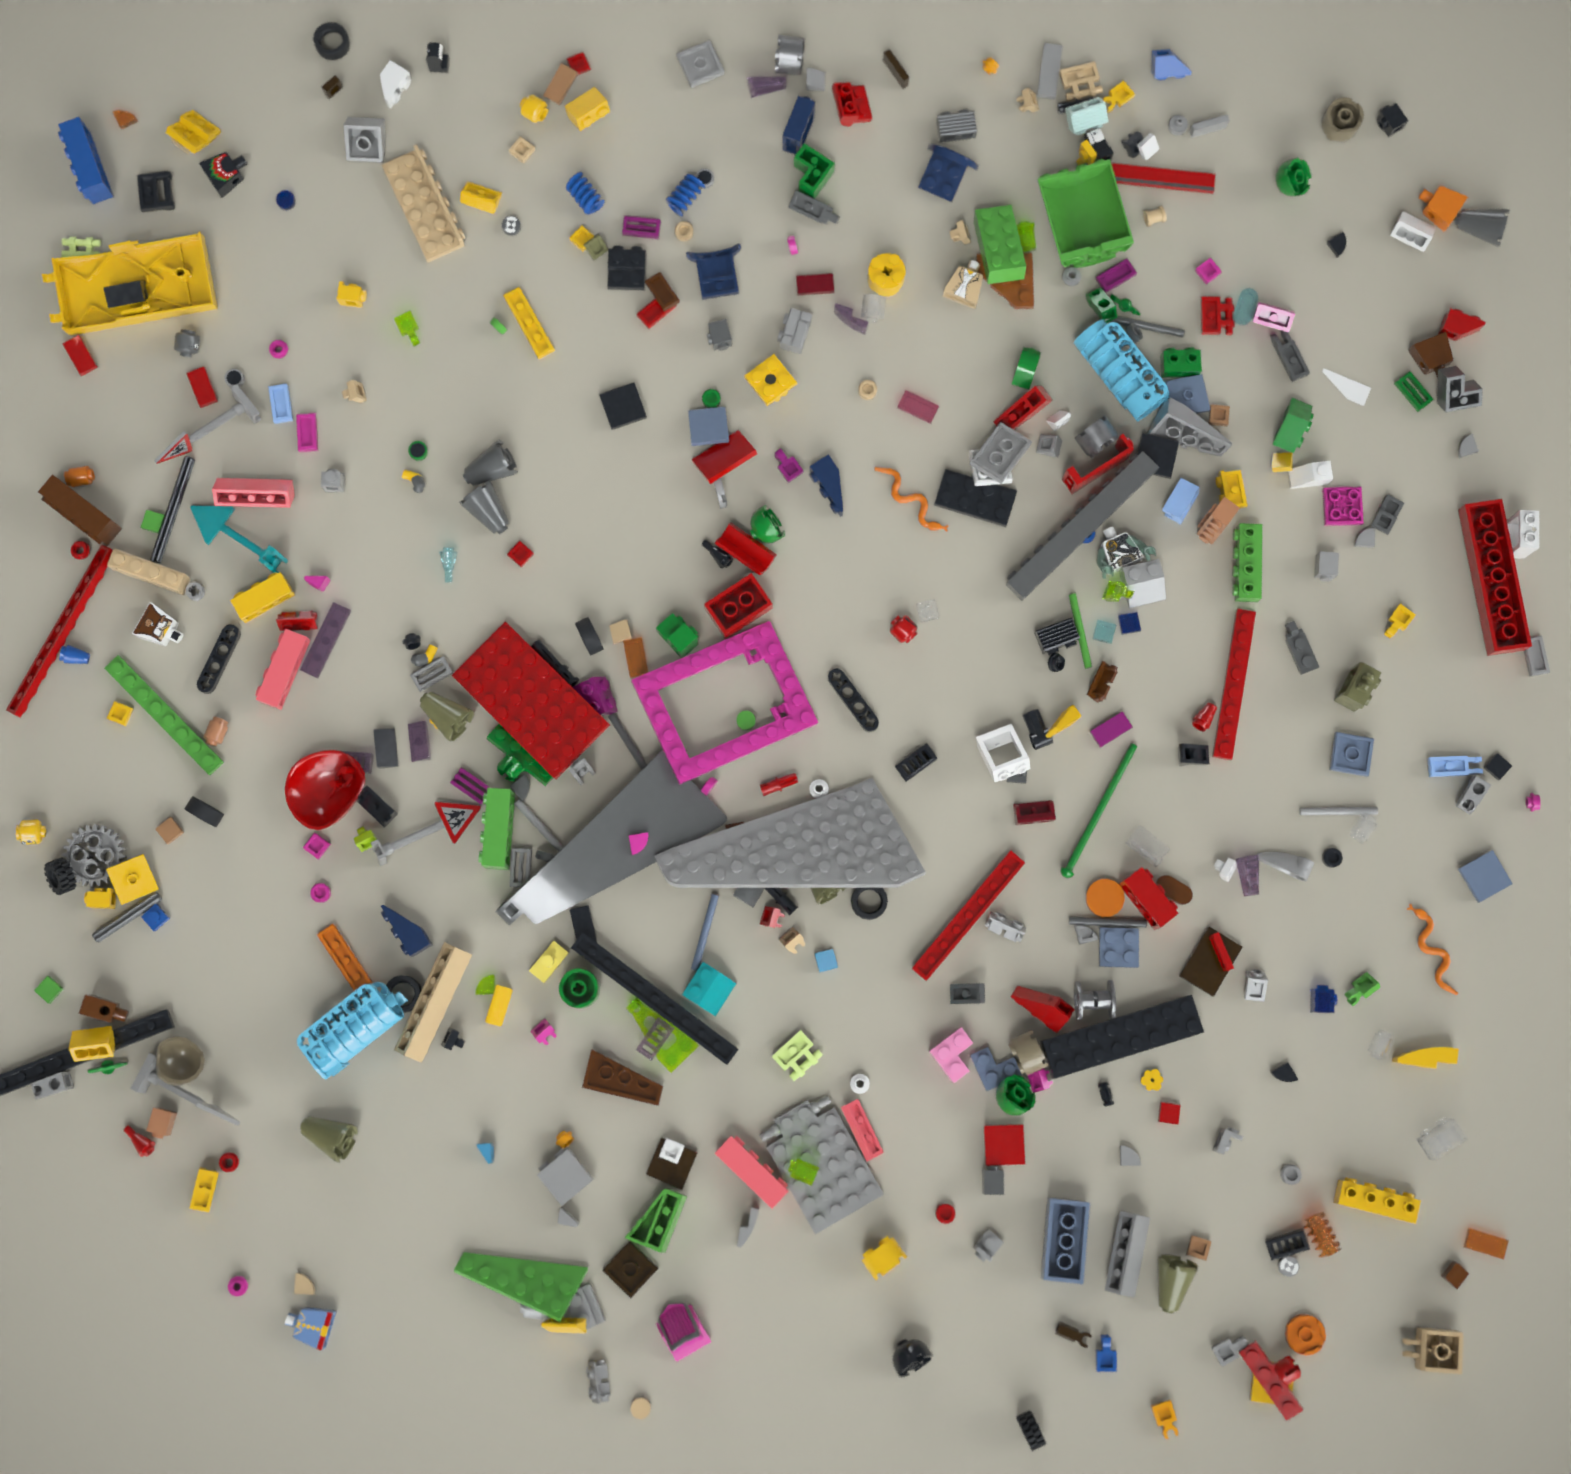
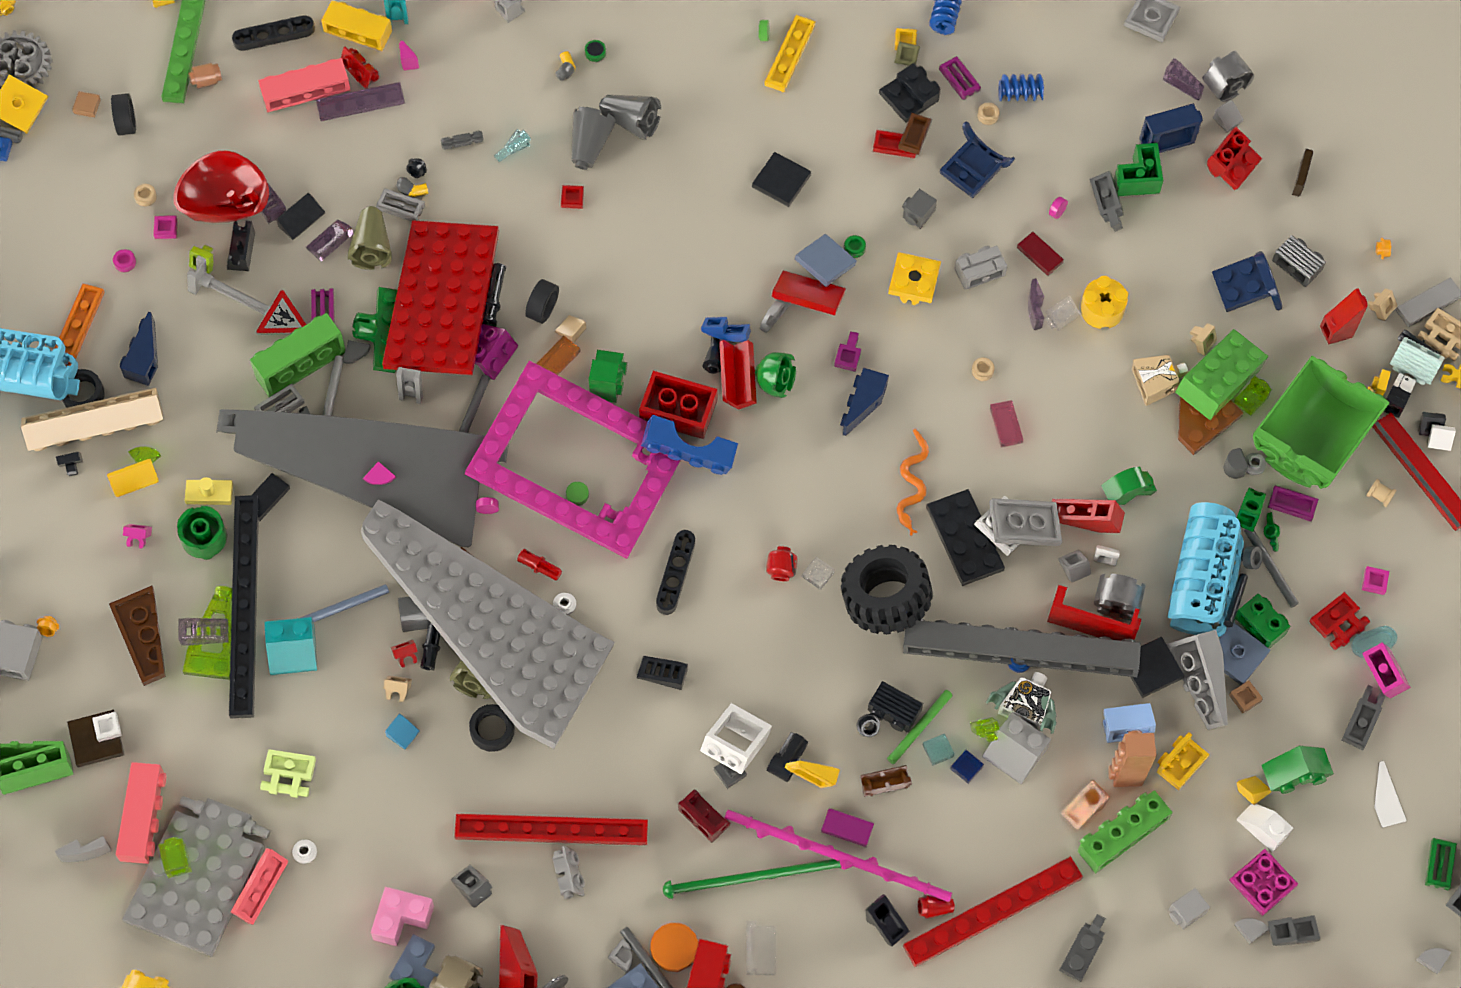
camera: 50 degrees right, 15 degrees down
(279, 841) = (145, 195): none -> tan tile
(415, 594) = (462, 140): none -> dark grey axle
(702, 535) = (719, 328): none -> blue slope
(706, 177) = (1052, 95): black tile -> none
(757, 635) = (662, 437): none -> blue arch
(963, 561) = (889, 612): none -> black tyre
(1024, 134) = (1344, 318): none -> red slope
(1063, 288) = (1235, 464): none -> dark grey brick
(1136, 748) = (846, 860): none -> dark pink plant
(1161, 373) = (1236, 599): none -> black bar
(1214, 572) = (1085, 805): none -> clear orange slope

